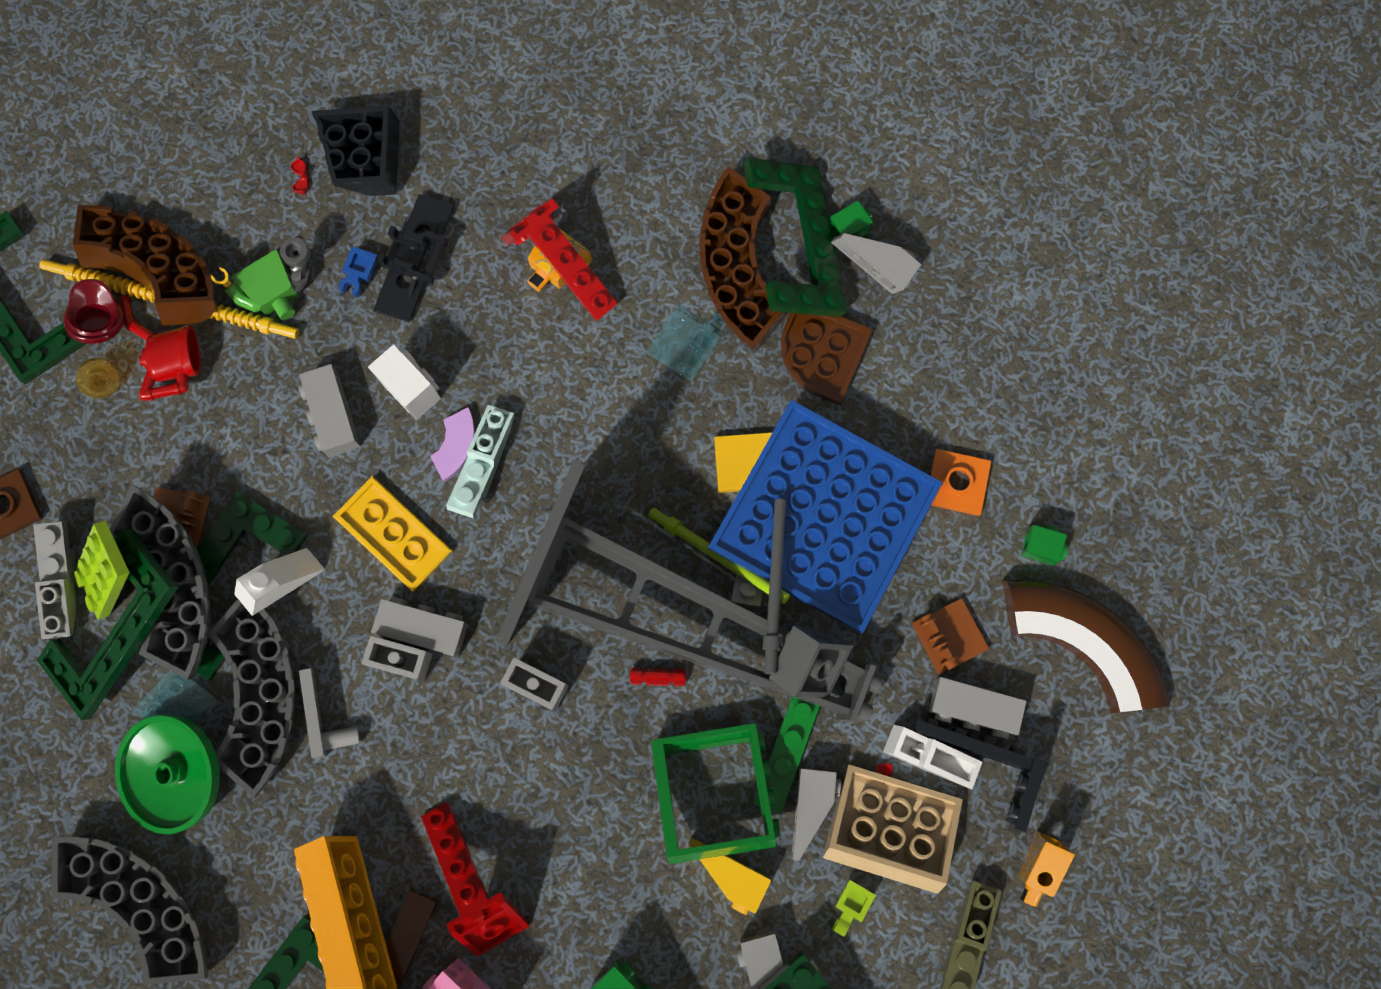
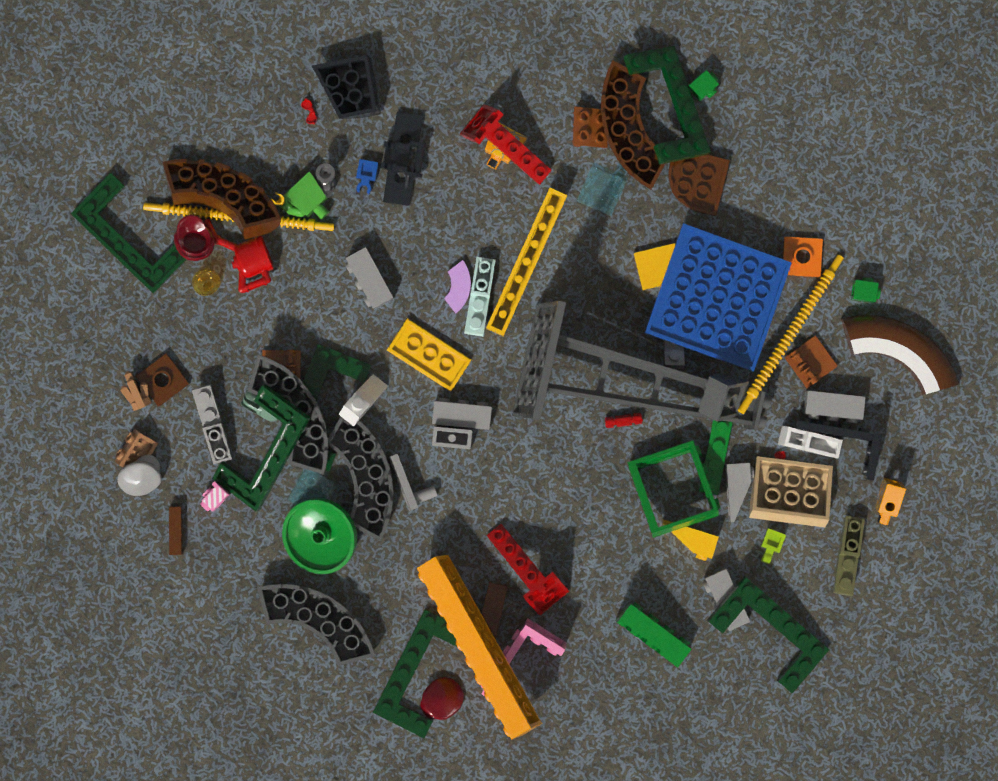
camera: 15 degrees left, 10 degrees up
(30, 688) = (214, 497): none -> bright pink brick
(101, 571) = (249, 414): lime plate -> none
(406, 381) = (419, 251): white brick -> none
(534, 684) = (545, 439): light grey brick -> none
(556, 423) = (526, 262): none -> yellow brick
(675, 528) = (618, 319): lime bar -> none
(679, 256) = (588, 128): none -> dark orange hinge
(771, 641) = (697, 388): dark grey bar -> none
(858, 663) = (752, 392): none -> yellow hose
(884, 262) = (732, 112): light grey slope -> none

